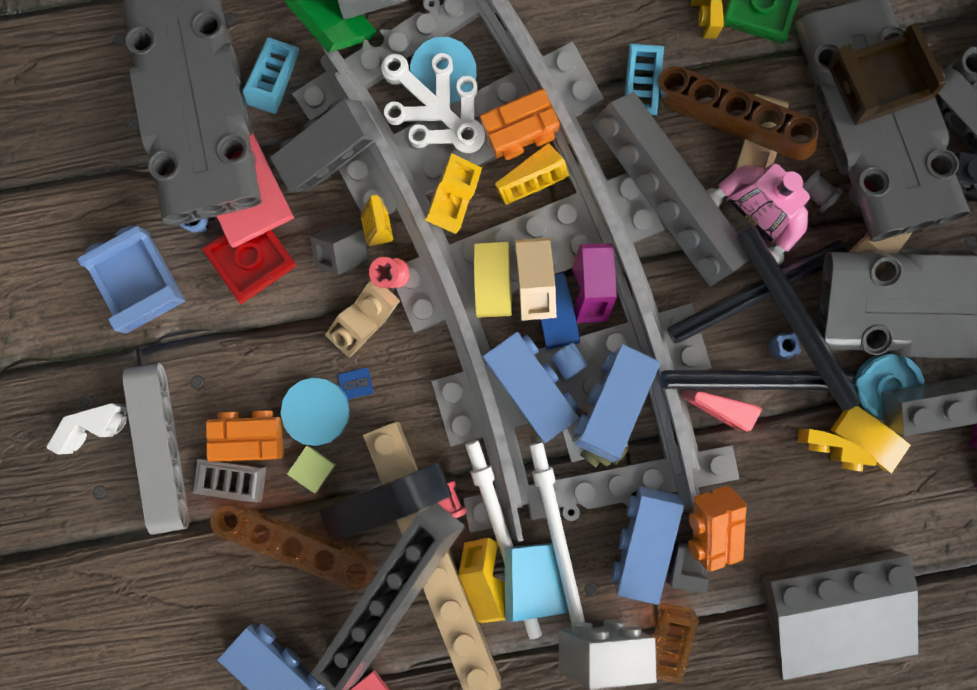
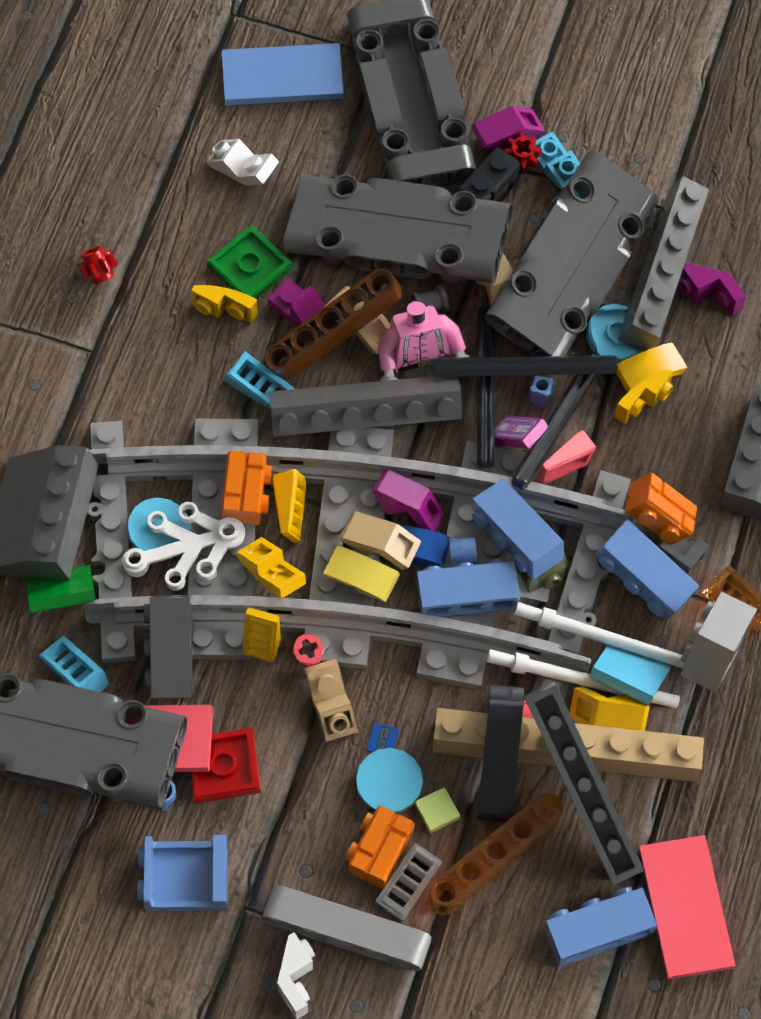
camera: 65 degrees left, 20 degrees down
(339, 248) = (260, 688): dark grey panel -> none
(725, 349) = (519, 431): none -> tile
(745, 65) = (295, 303): none -> magenta slope
(887, 75) = (370, 205): dark brown panel -> none

